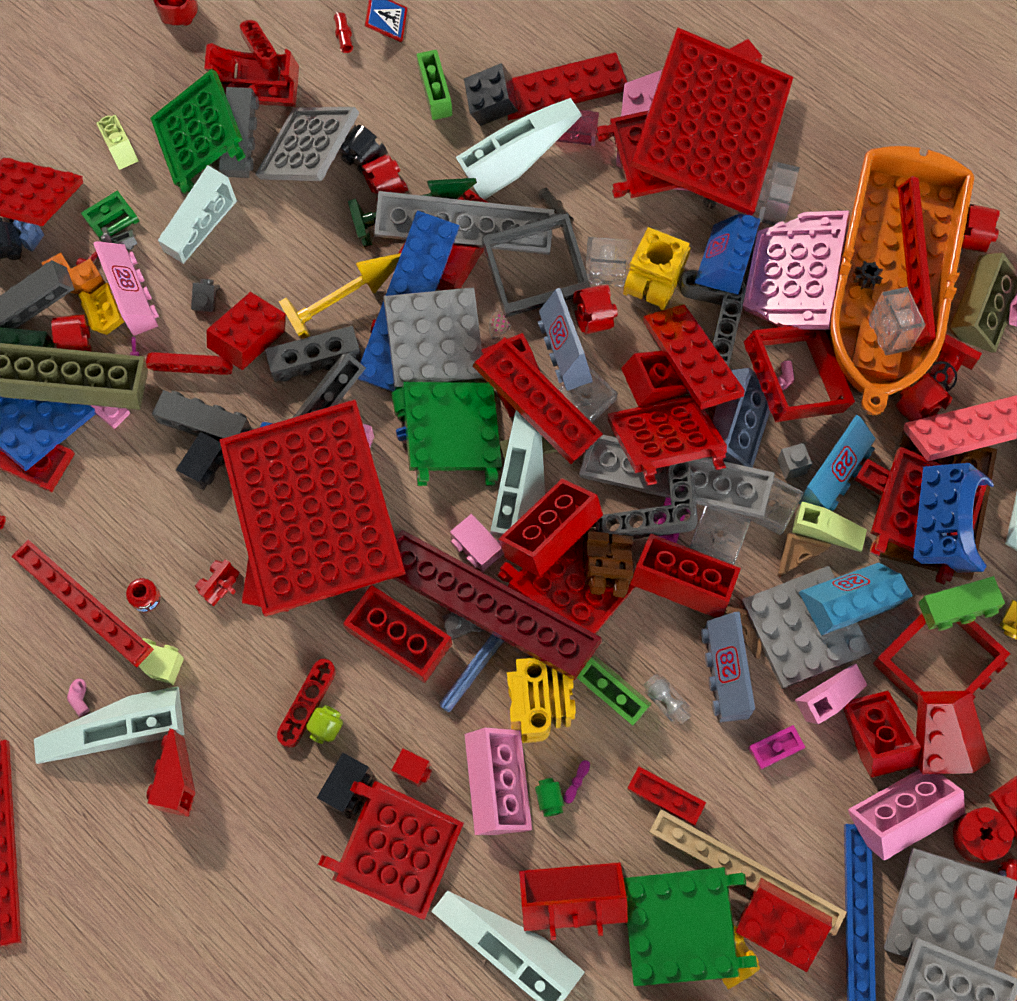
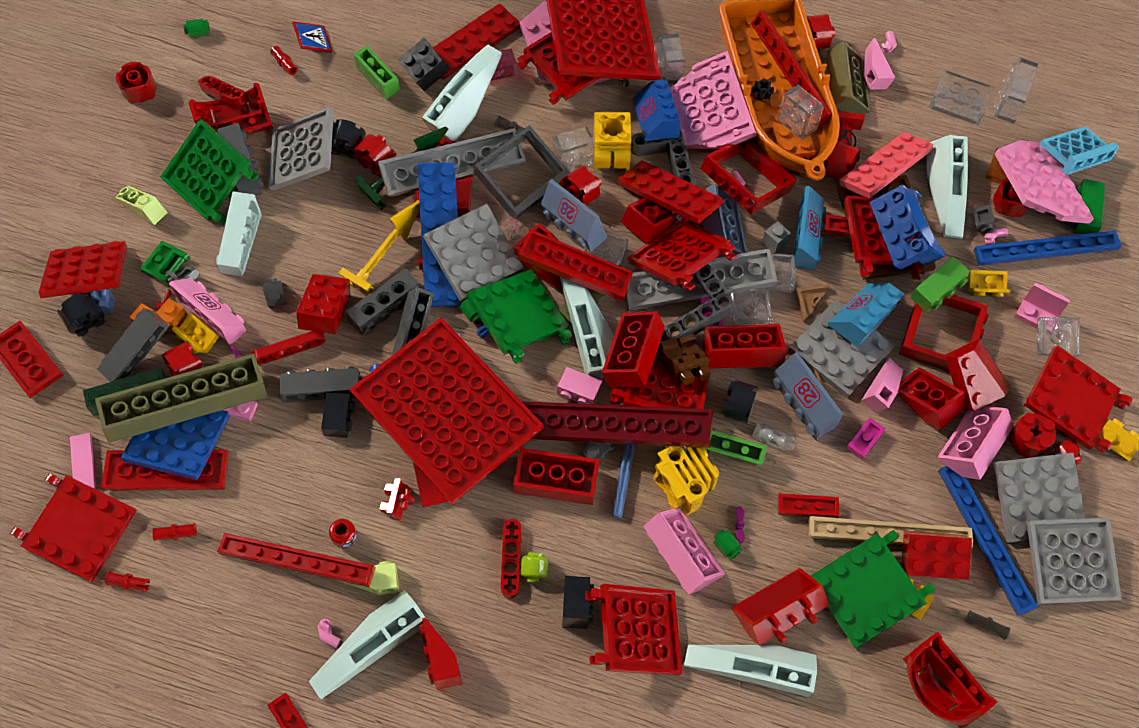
camera: 30 degrees left, 5 degrees down
(412, 768) = (616, 568): red brick -> none
(647, 639) = (740, 401): none -> black brick
(828, 527) = (821, 272): yellowish green slope -> none

